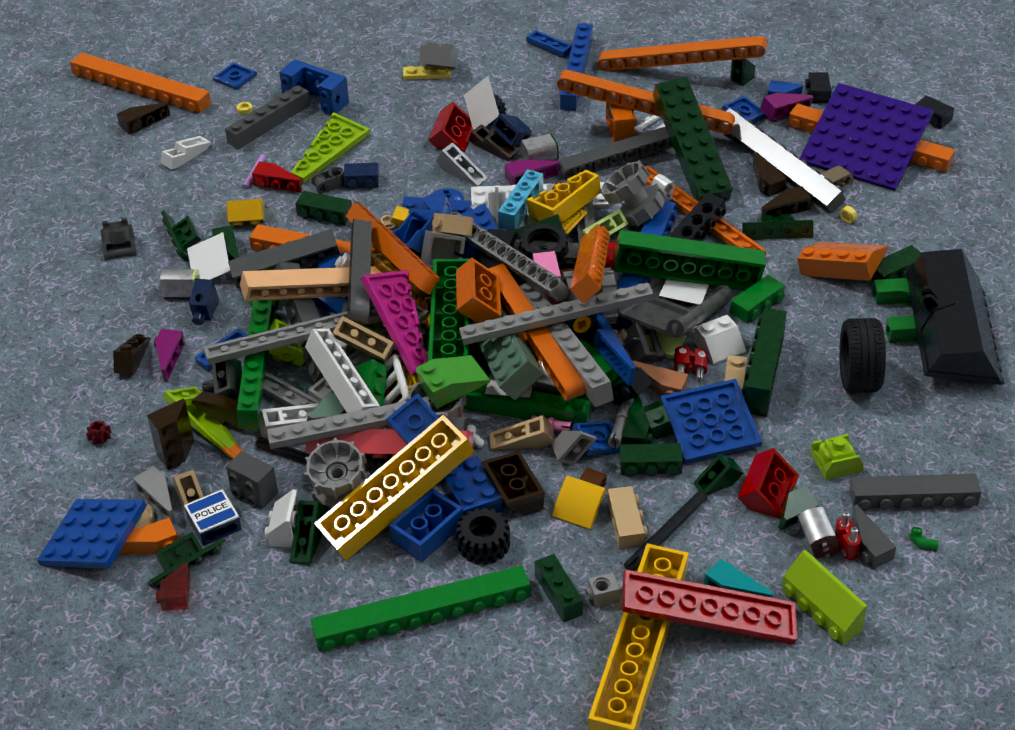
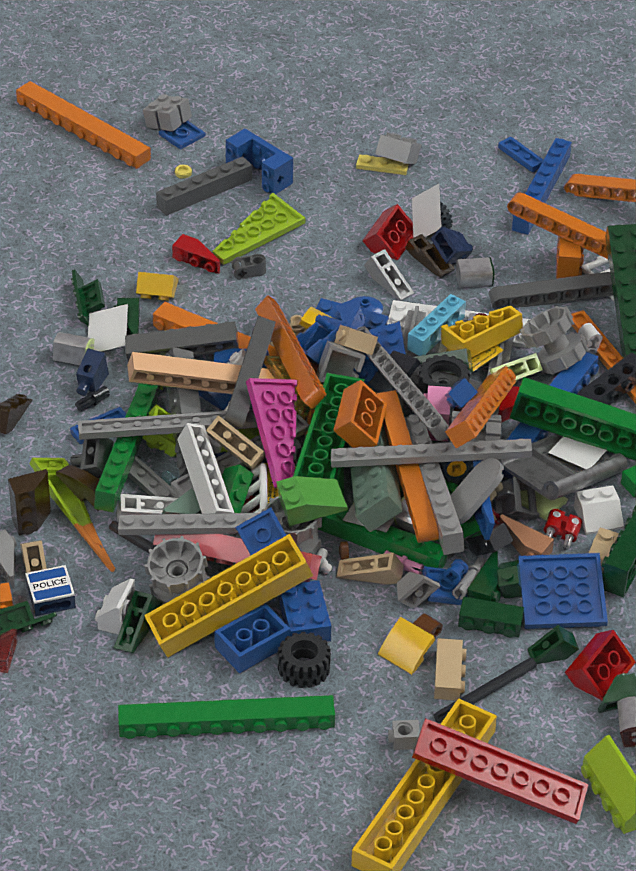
camera: 10 degrees right, 0 degrees up
(117, 234) = (22, 286): dark grey piece -> none
(138, 117) = (75, 162): dark brown slope -> none
(169, 347) = (47, 414): magenta slope -> none
(184, 151) = (110, 209): white slope -> none
(209, 325) = (92, 398): none -> black axle
(219, 57) = (168, 112): none -> light grey piece
(249, 179) = (168, 251): lavender bar -> none
(252, 480) = (95, 561): dark grey brick -> none
(323, 207) = (235, 295): dark green brick -> none
(361, 175) = (283, 267): dark blue brick -> none
(491, 423) = (343, 550): none -> reddish brown tile
(515, 483) = (348, 614): dark brown slope -> none
(516, 169) = (469, 293): magenta slope -> none
(558, 588) = (362, 724): dark green brick -> none
(566, 254) = (460, 393): none -> blue slope
(604, 424) = (455, 572): none -> blue bush
(609, 336) = (476, 488): none -> light grey tile
(728, 577) = (530, 747): teal slope -> none

